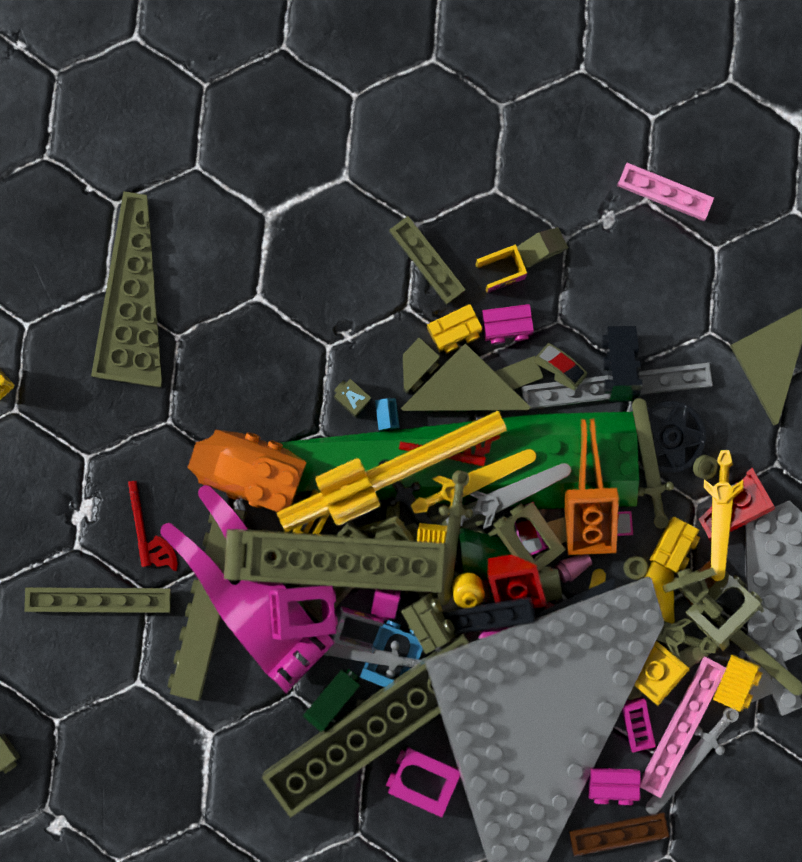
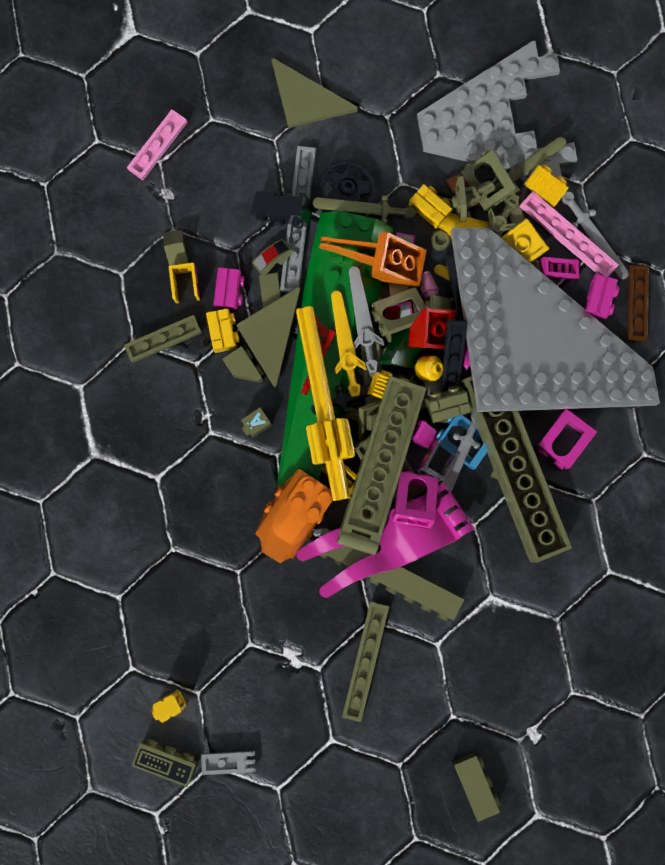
camera: 70 degrees left, 0 degrees up
(129, 325) = (153, 585): olive wing -> none
(144, 547) = (332, 615): red piece -> none
(332, 699) = (487, 494): dark green slope -> none
(387, 414) = (275, 399): dark azure piece -> none
(455, 513) = (365, 361): olive sword -> none
(705, 467) = (376, 168): olive tile -> none
(722, 504) = (411, 163): yellow sword -> none
(747, 505) = (413, 151): red wing -> none

